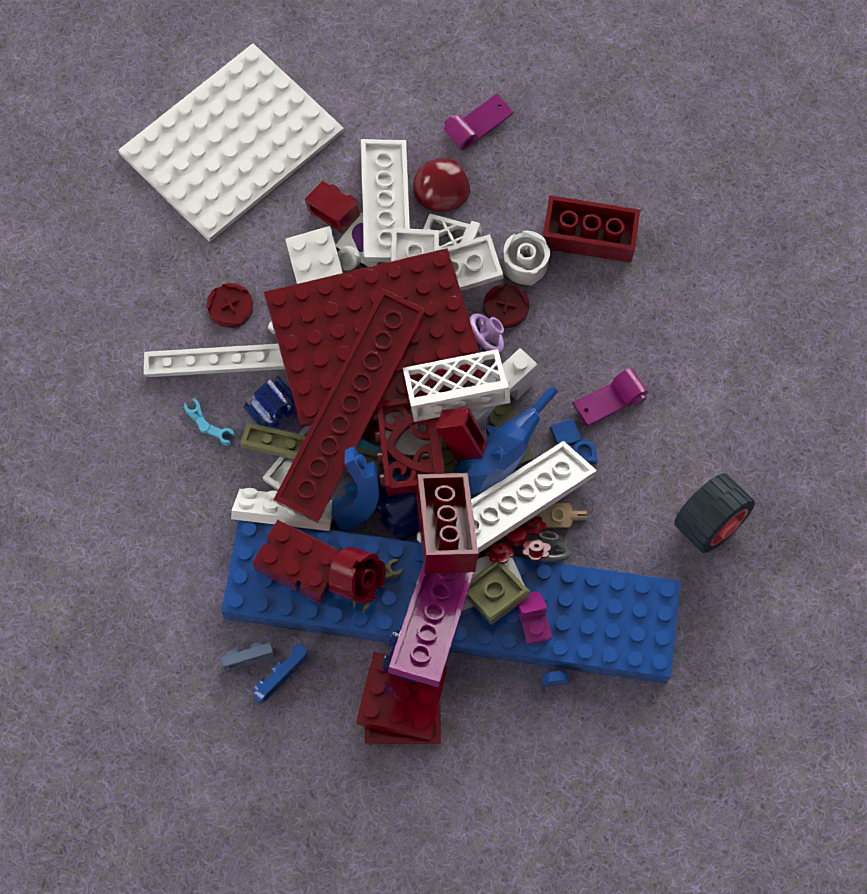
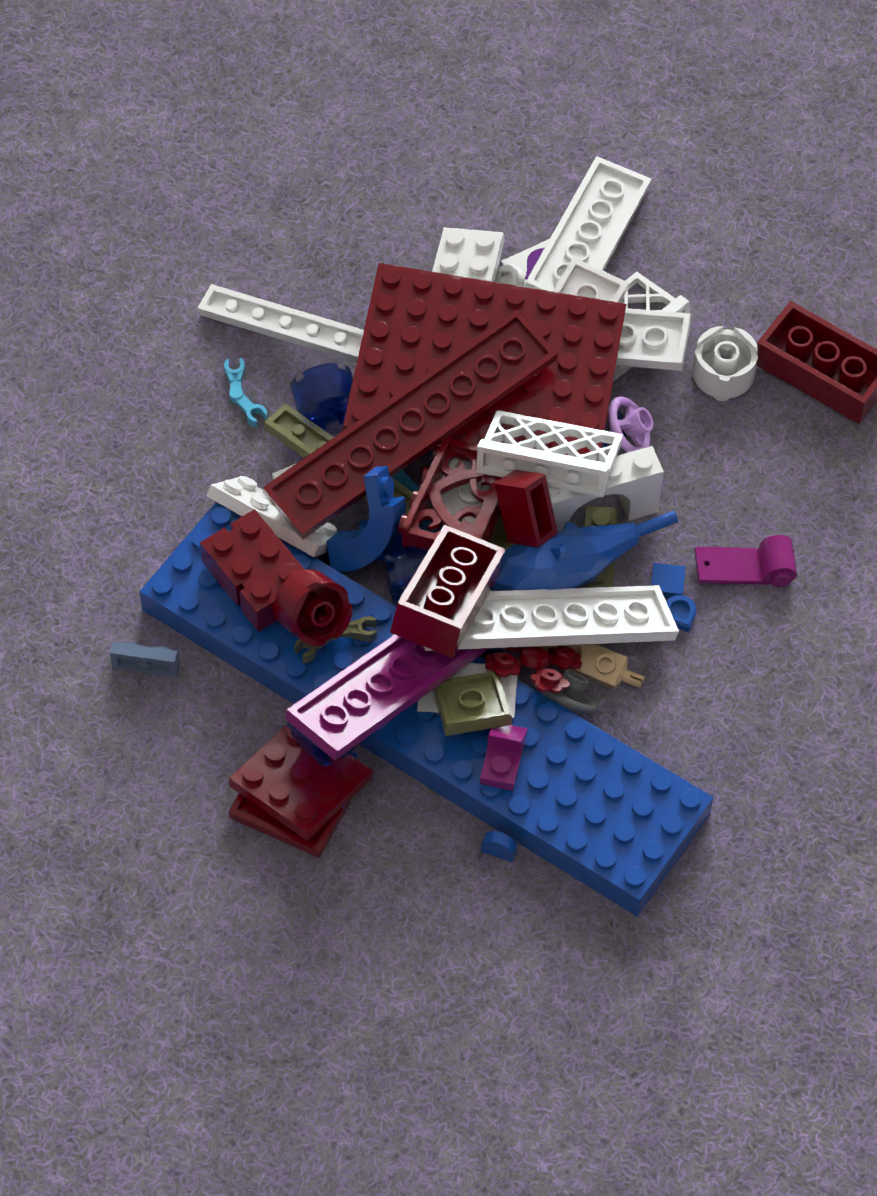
camera: 30 degrees right, 10 degrees down
(229, 305) = (340, 277): dark red tile -> none
(231, 142) = (442, 103): white plate -> none
(281, 673) = (173, 694): blue plate -> none
(333, 206) = (521, 216): dark red piece -> none
(441, 185) = (668, 245): dark red cylinder -> none
(478, 123) = (751, 196): magenta door -> none
(506, 304) = (675, 409): dark red tile -> none
(714, 512) = (799, 737): black wheel -> none

